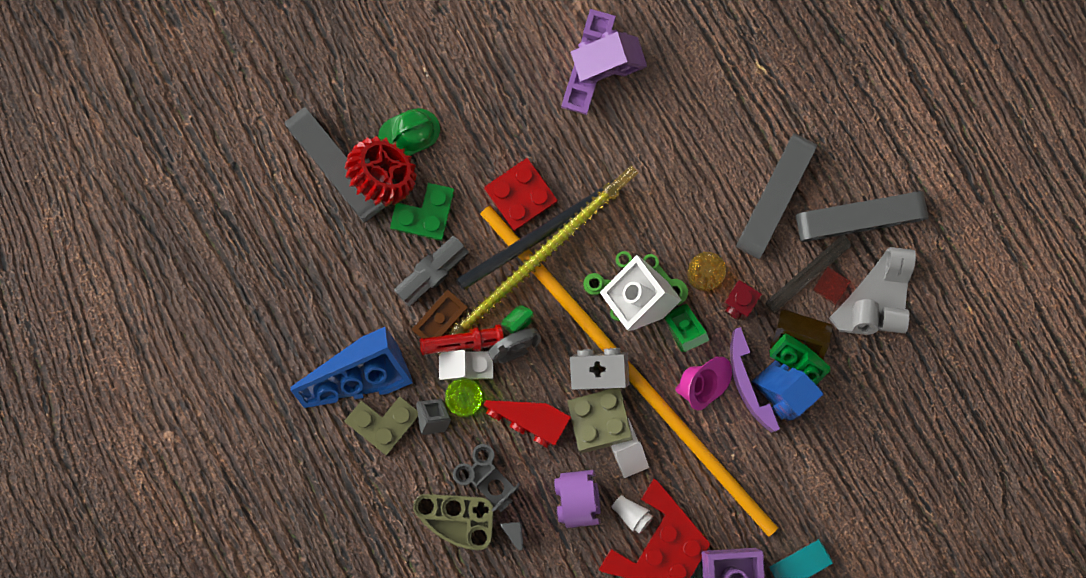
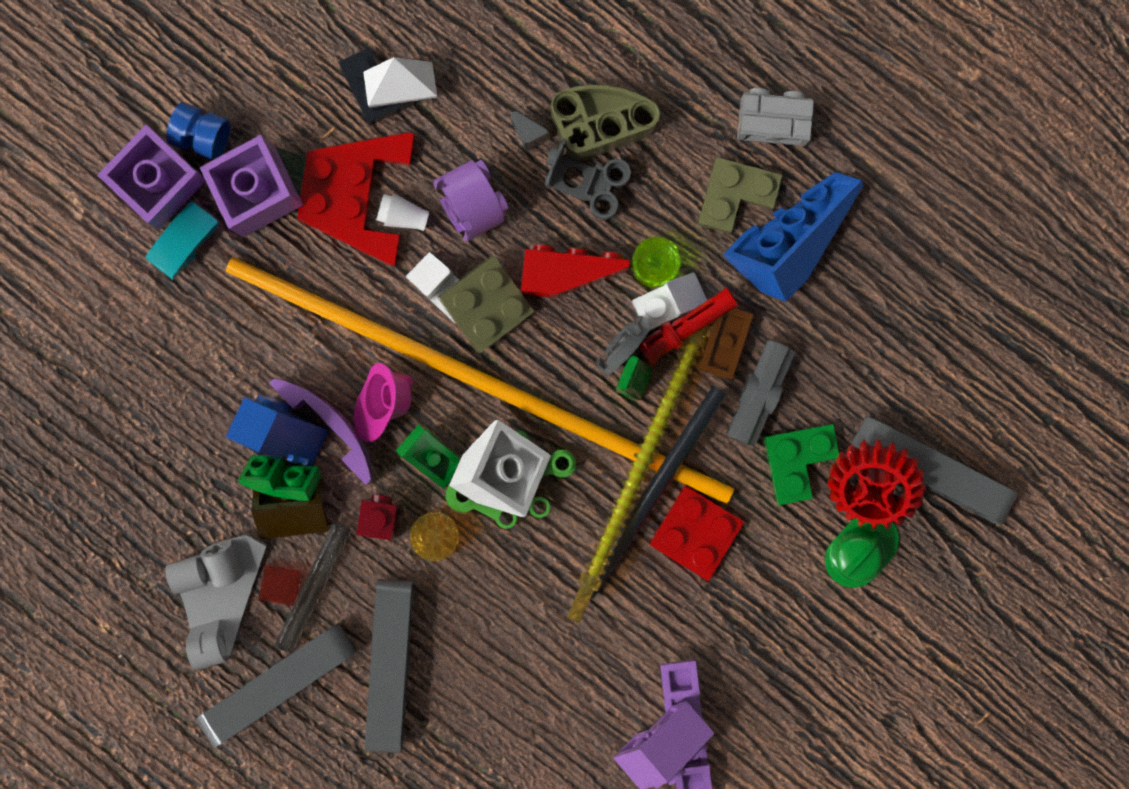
camera: 160 degrees right, 5 degrees up
(330, 464) = (775, 117): none -> light grey brick
(432, 416) = (682, 225): dark grey slope -> none
(585, 377) = (520, 346): light grey brick -> none

